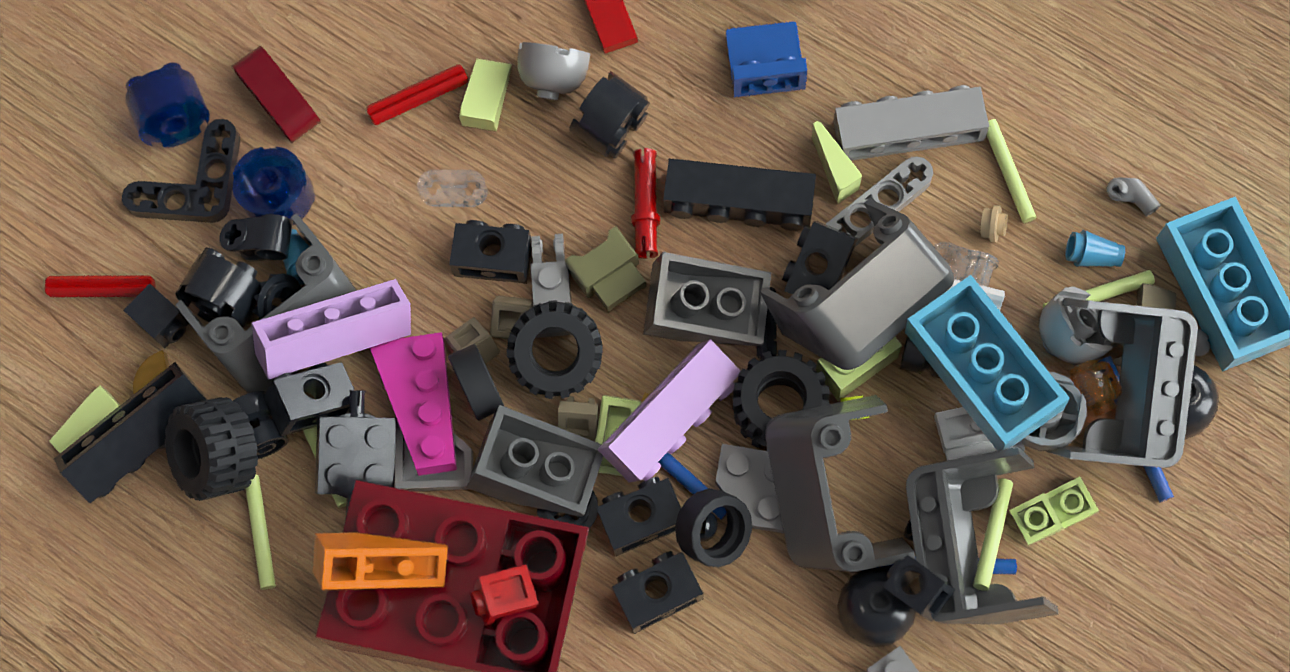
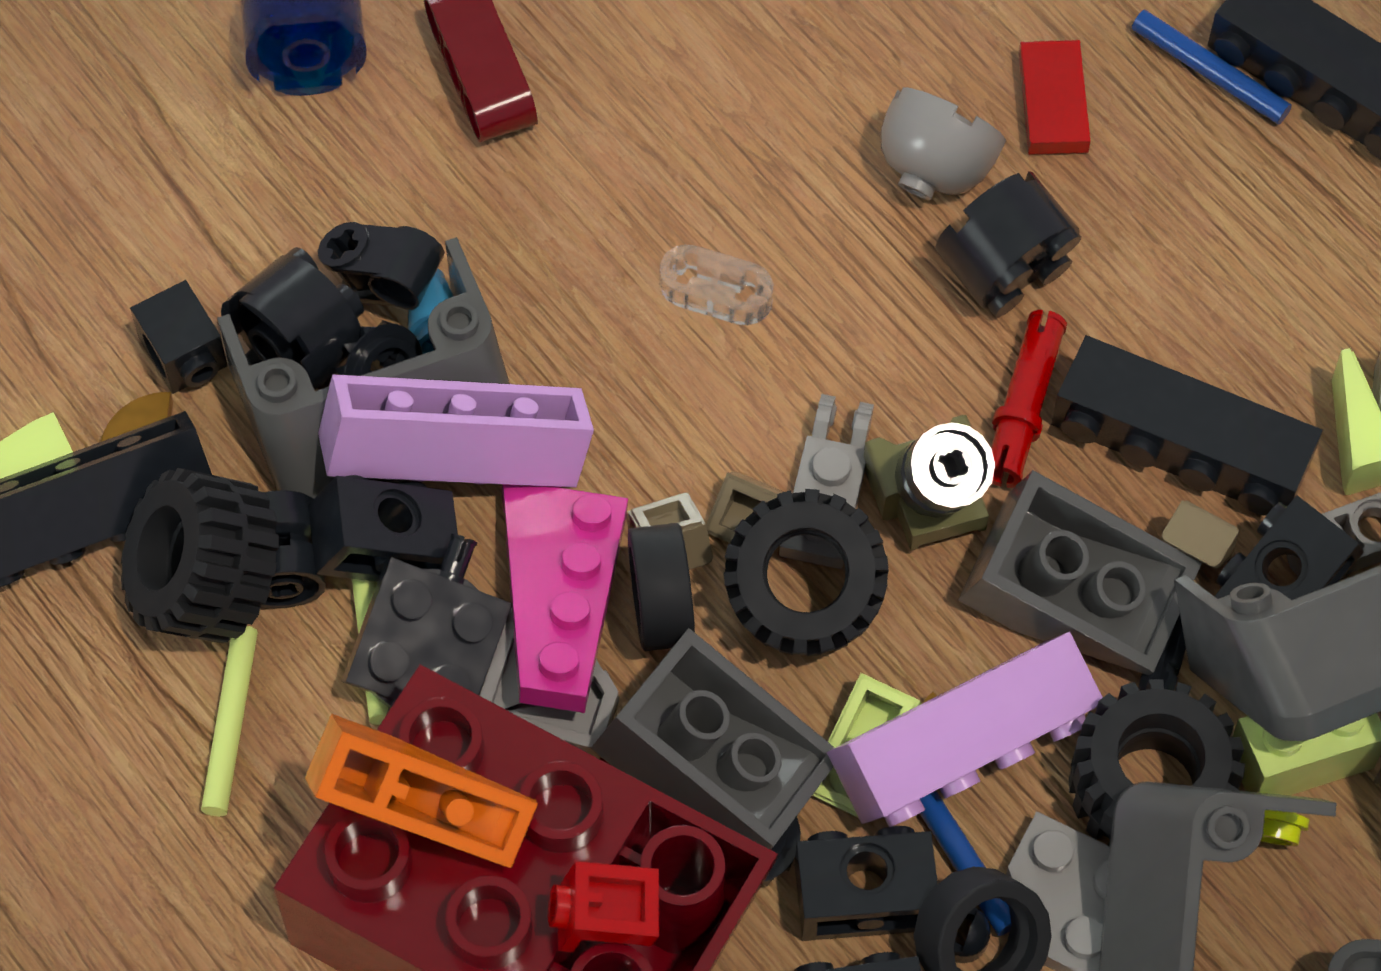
camera: 10 degrees right, 10 degrees down
(97, 285) = (95, 264): red axle -> none
(197, 194) = (301, 174): black beam -> none
(270, 168) = (432, 185): clear blue brick -> none
(417, 94) = (705, 127): red axle -> none
(485, 95) = (814, 160): yellowish green slope -> none
(508, 265) = (764, 426): black brick -> none
(579, 417) = (812, 695): dark tan tile -> none
(614, 267) = (944, 470): none -> wheel
(766, 59) = (1291, 236): blue bracket -> none
(766, 256) = (1201, 534): none -> dark tan slope

